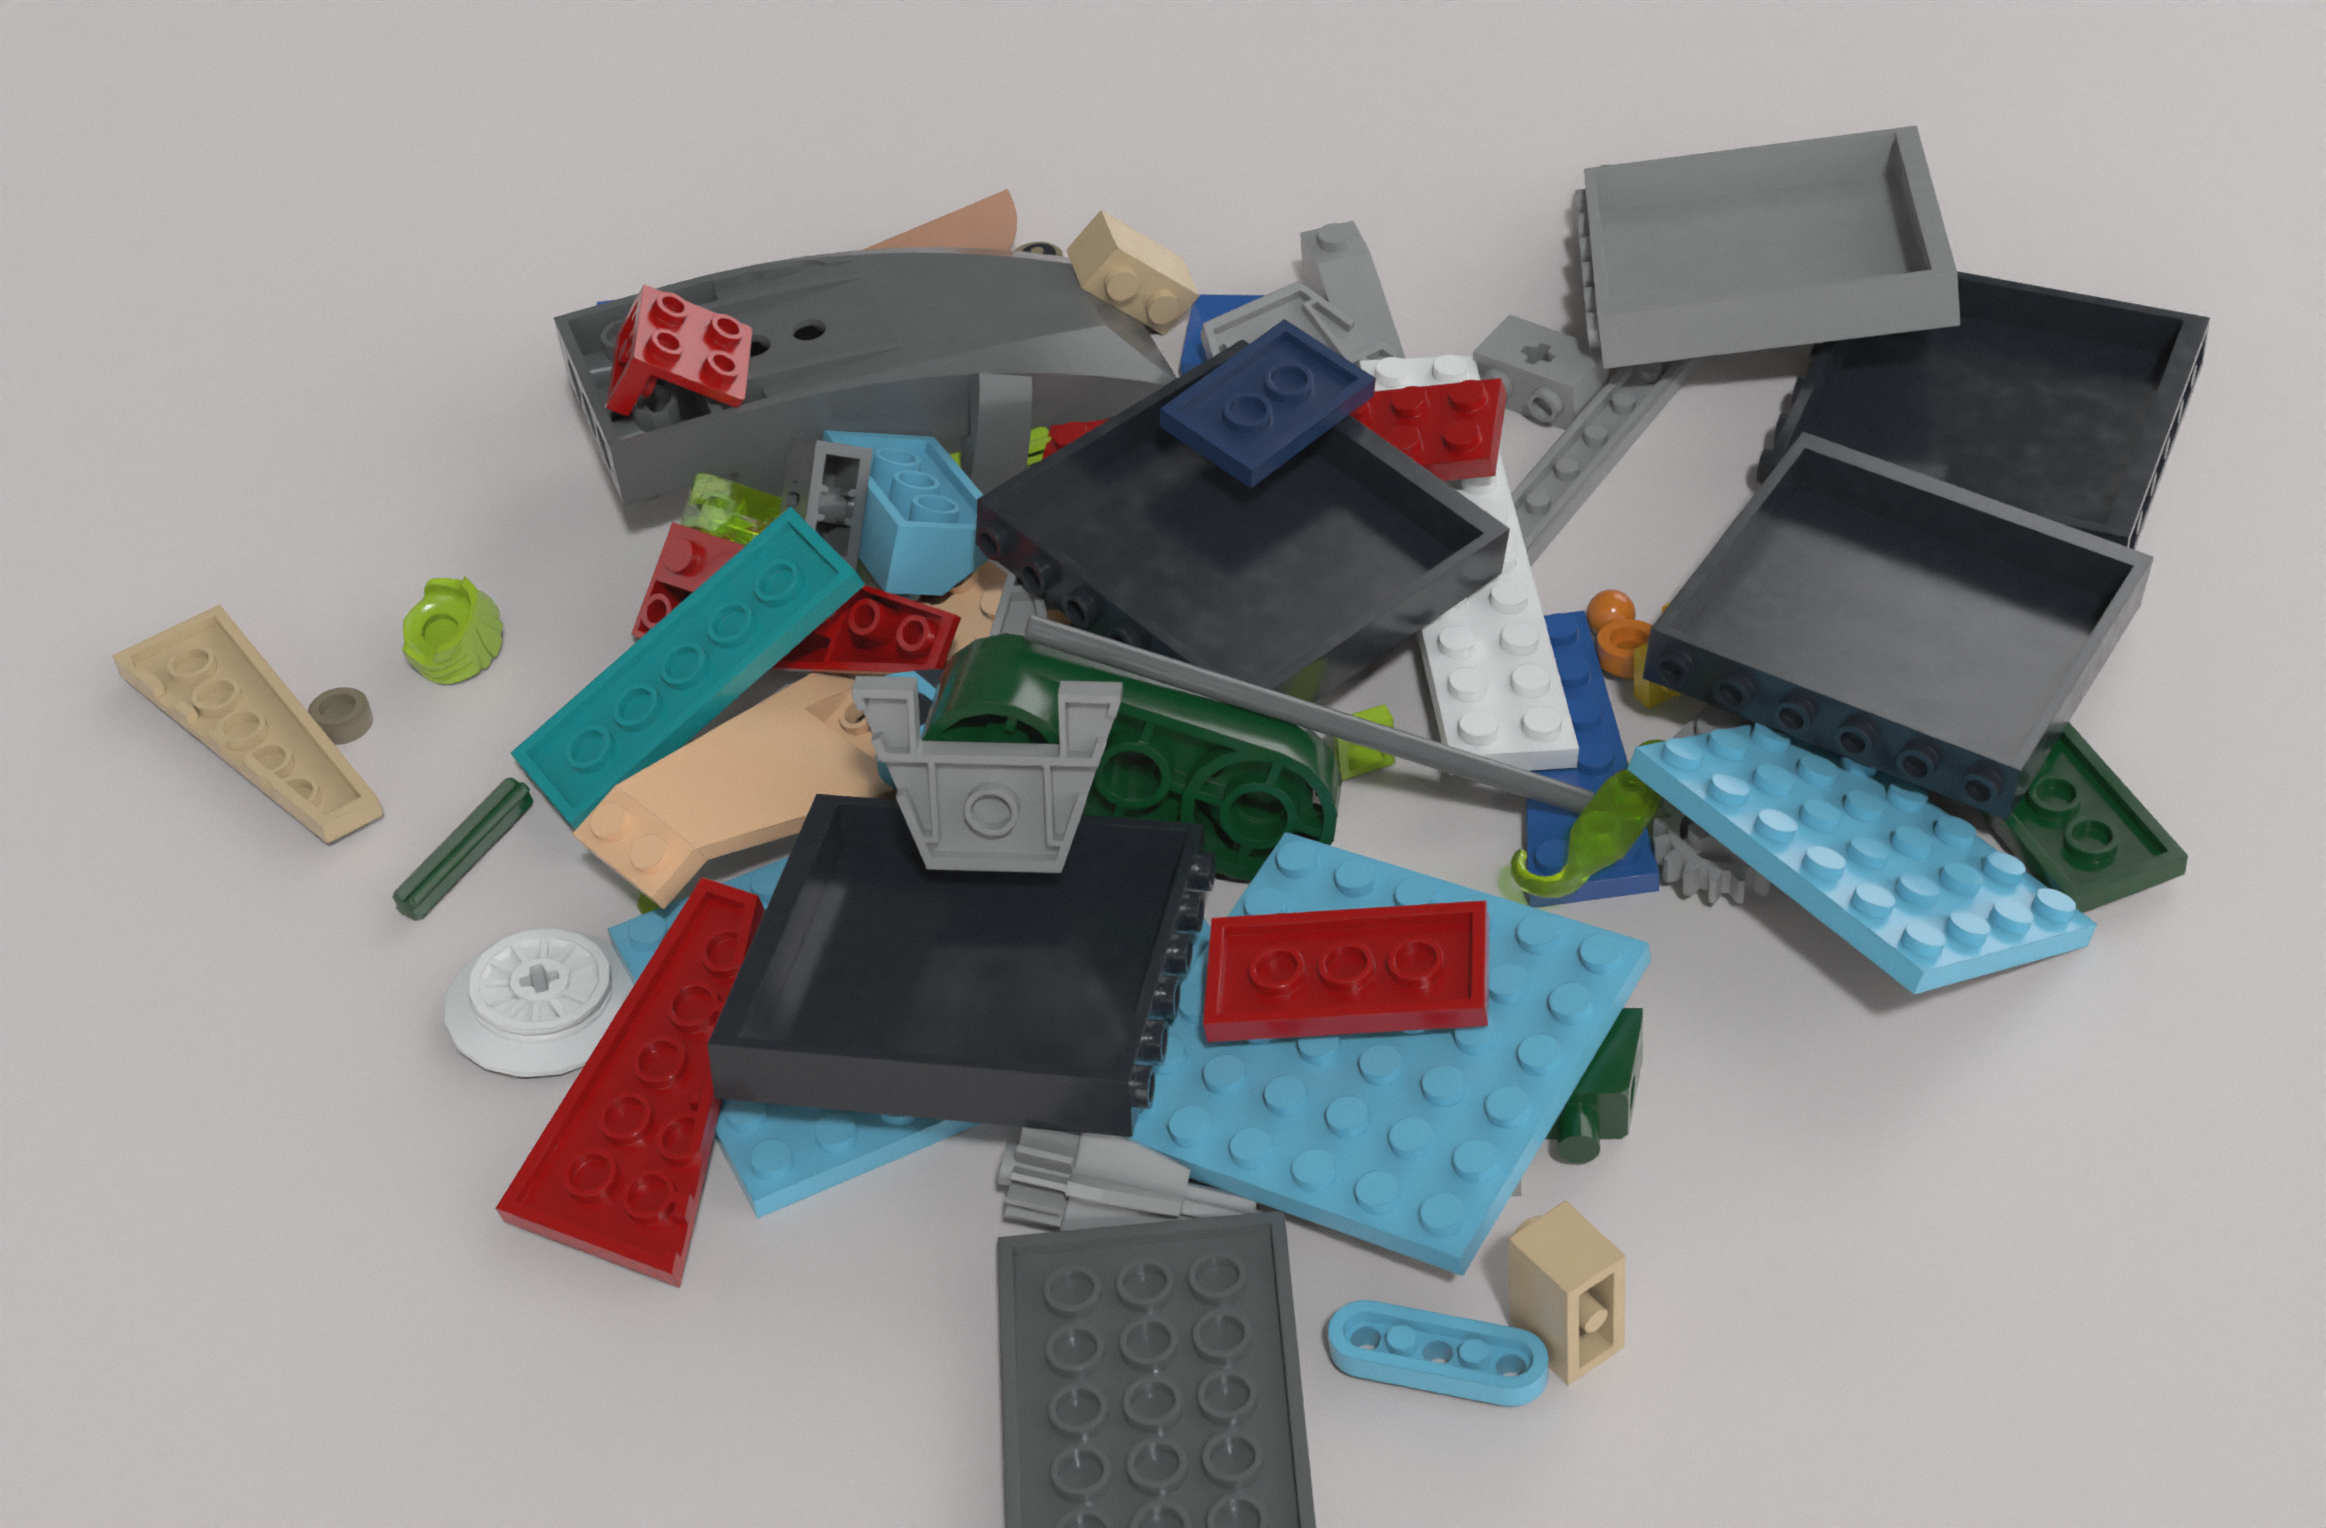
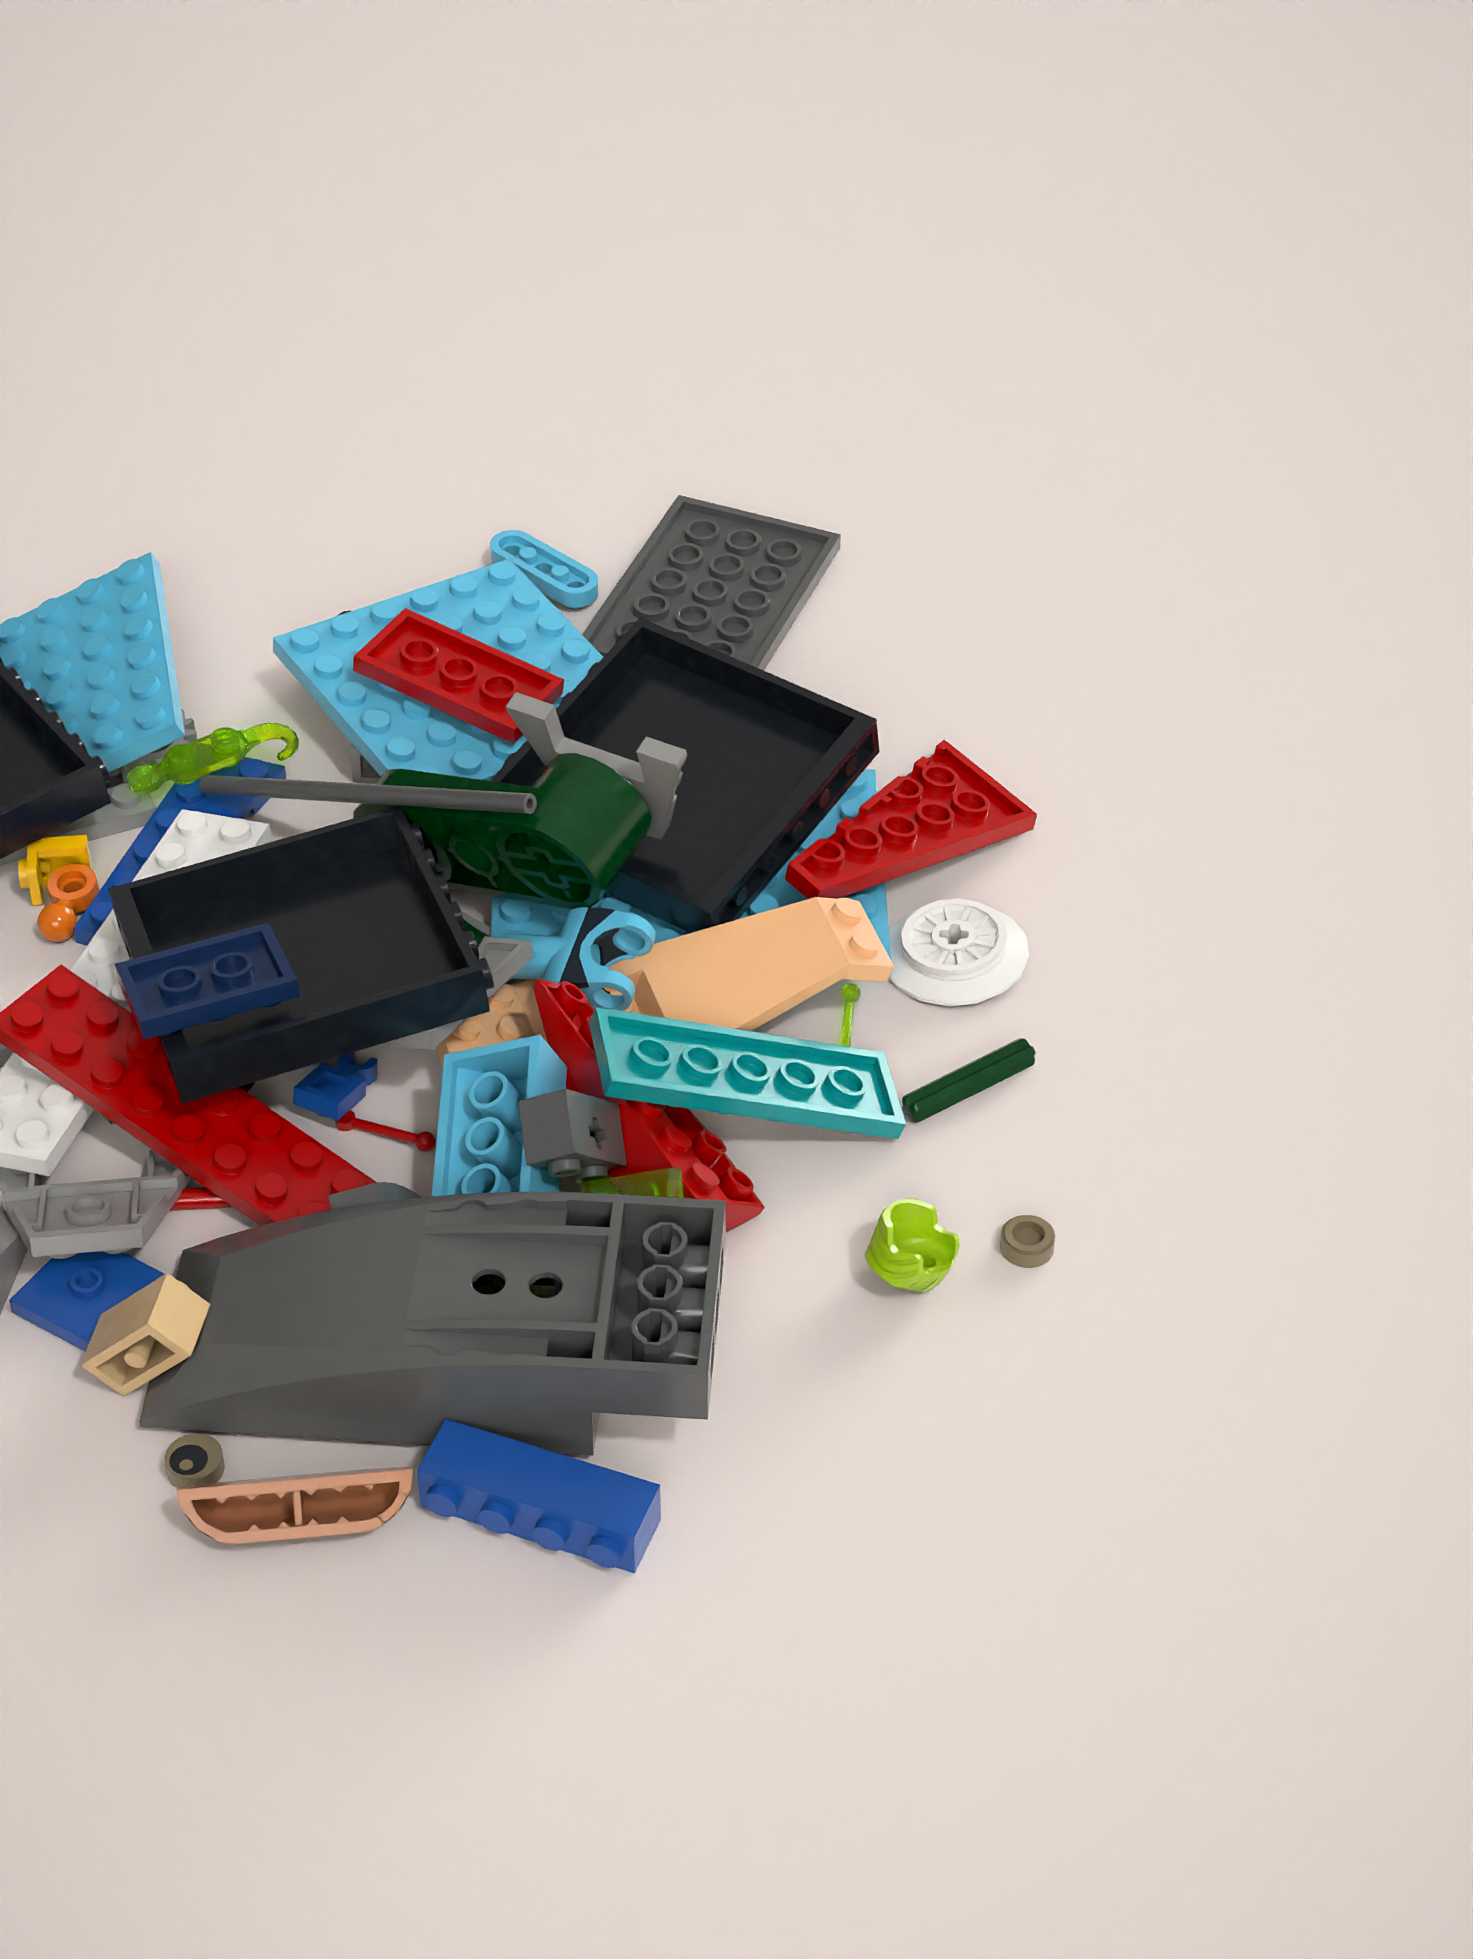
camera: 160 degrees left, 0 degrees up
(244, 712) = (1116, 1284): tan wing -> none
(680, 345) = (642, 1229): red bracket -> none
(1567, 1290) = (464, 529): tan brick -> none

